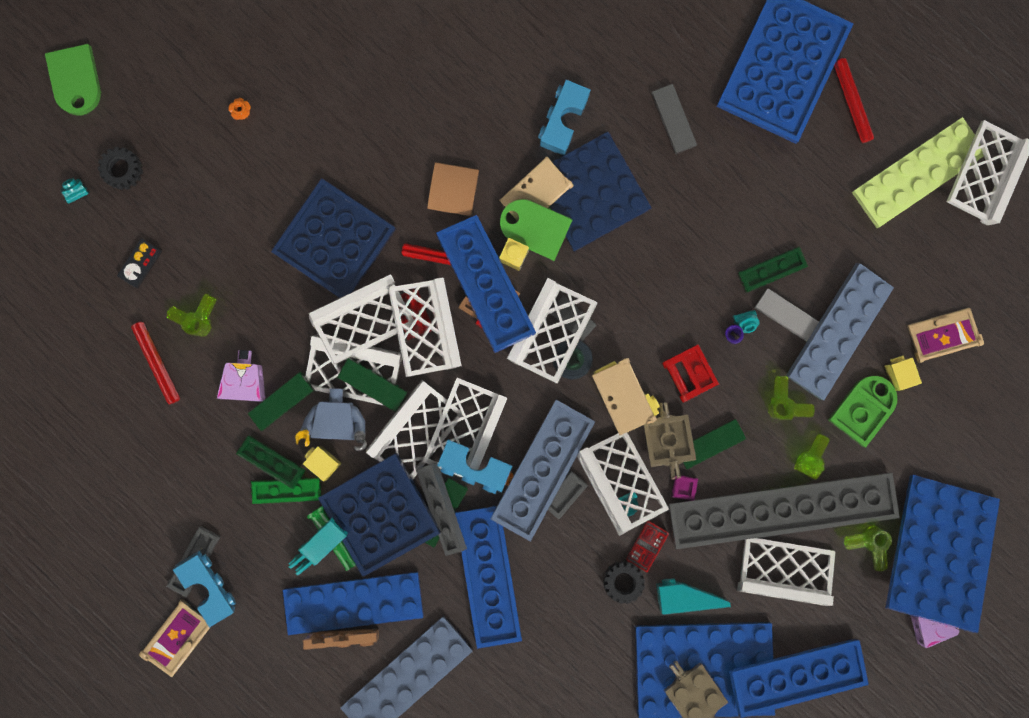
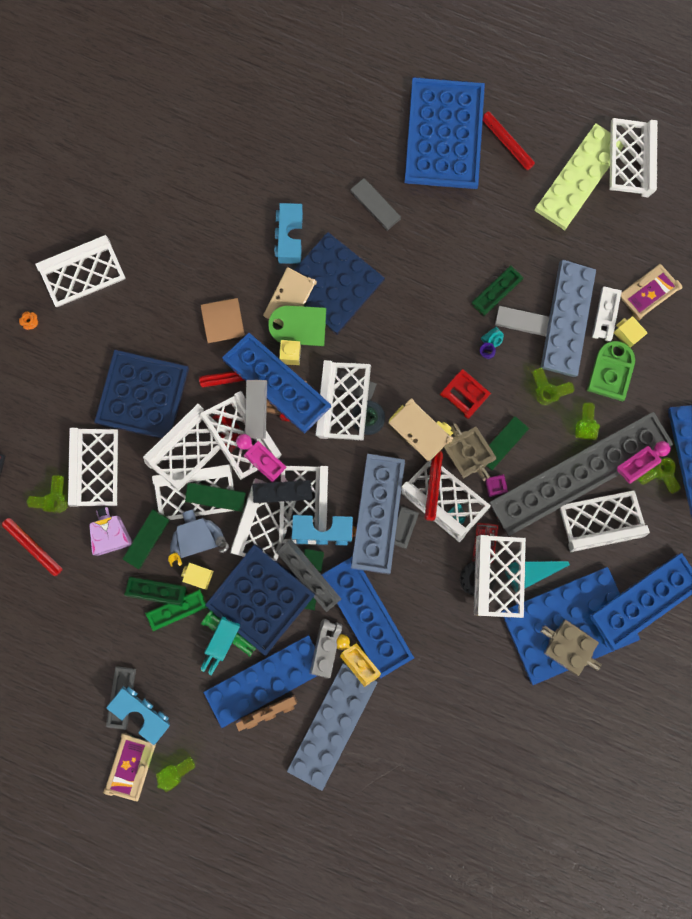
camera: 20 degrees left, 5 degrees down
(215, 664) = (171, 775): none -> clear neon green axle
(233, 293) = (75, 467): none -> white fence
(316, 54) = (73, 256): none -> white fence
(430, 594) = (325, 649): none -> light grey plate
(437, 361) = (261, 457): none -> dark pink plate
(446, 407) = (282, 491): none -> black plate
(451, 306) = (256, 408): none -> light grey tile
(459, 620) = (357, 661): none -> yellow plate
(614, 466) = (433, 487): none -> red axle
(628, 587) = (483, 572): none -> white fence
(857, 525) = (643, 461): none -> dark pink plate
(885, 342) = (606, 313): none -> white plate

